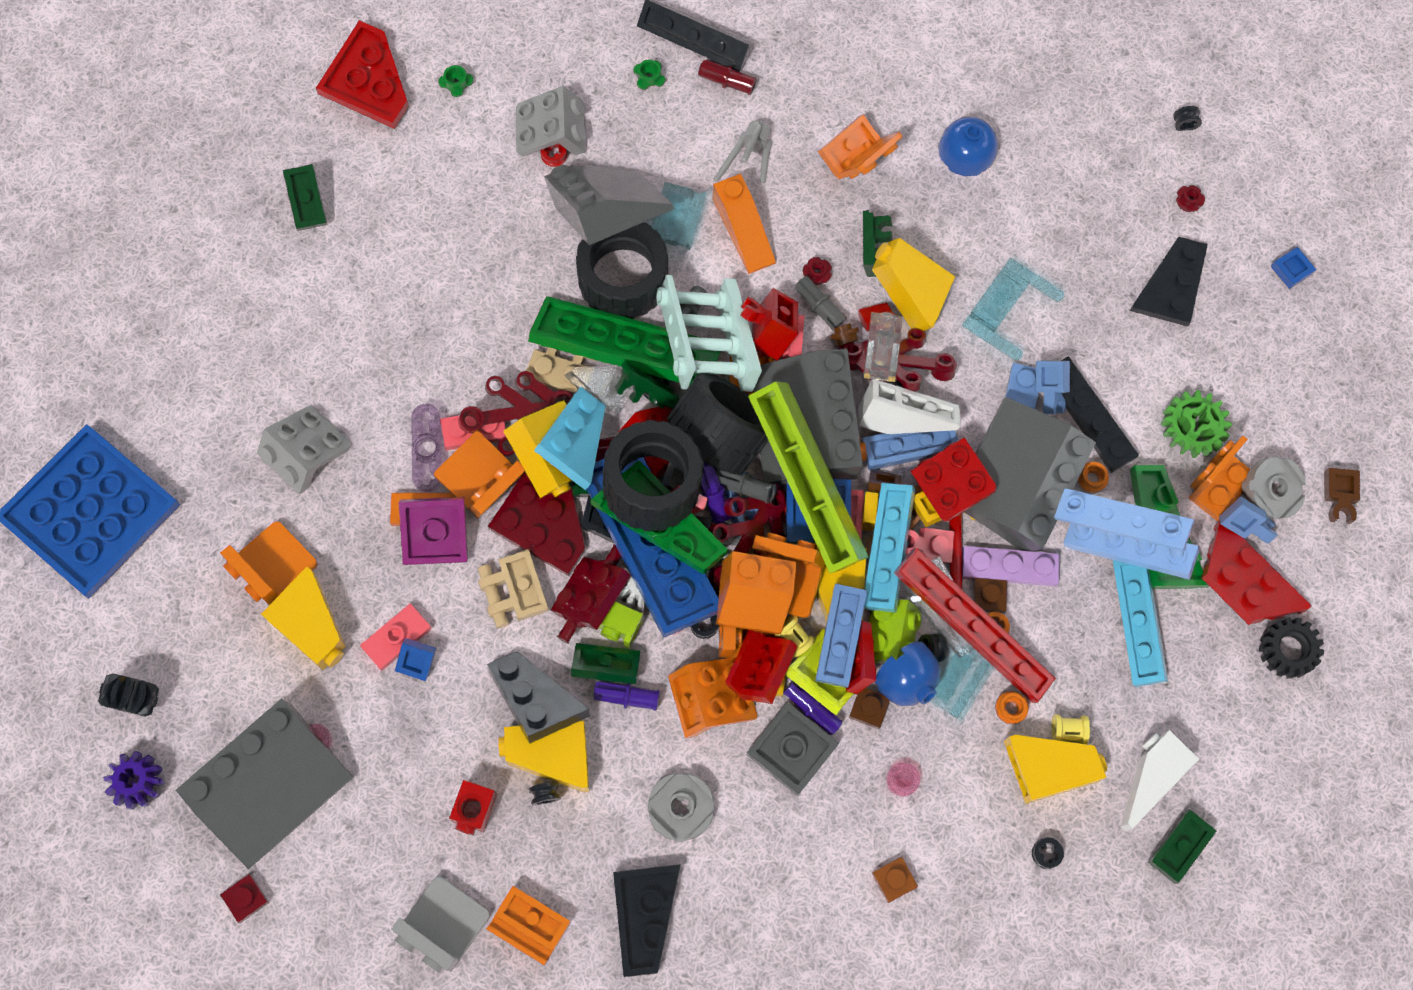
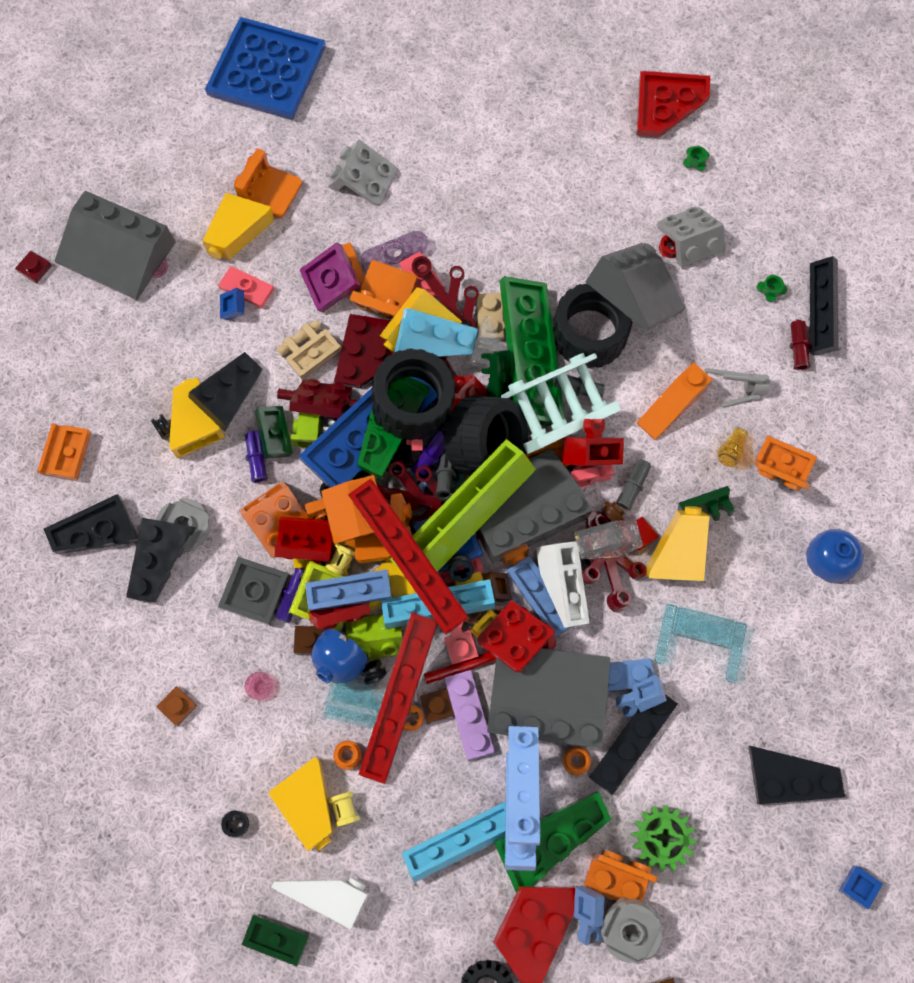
camera: 75 degrees right, 0 degrees up
(128, 695) = (144, 139): black gear -> none
(138, 792) = (90, 168): dark purple gear -> none
(304, 197) = (550, 98): dark green plate -> none
(441, 925) = (45, 393): light grey bracket -> none
(468, 793) = (143, 389): red brick -> none
(680, 224) = (659, 351): clear light blue plate -> none
(711, 847) = (155, 554): none -> black wing
(816, 263) = (660, 479): dark red plate -> none
(818, 190) = (732, 450): none -> clear yellow cone
(840, 547) = (408, 556): none -> red tile
(859, 507) = (463, 575): none -> black bush
(1187, 204) = (876, 767): dark red plate -> none

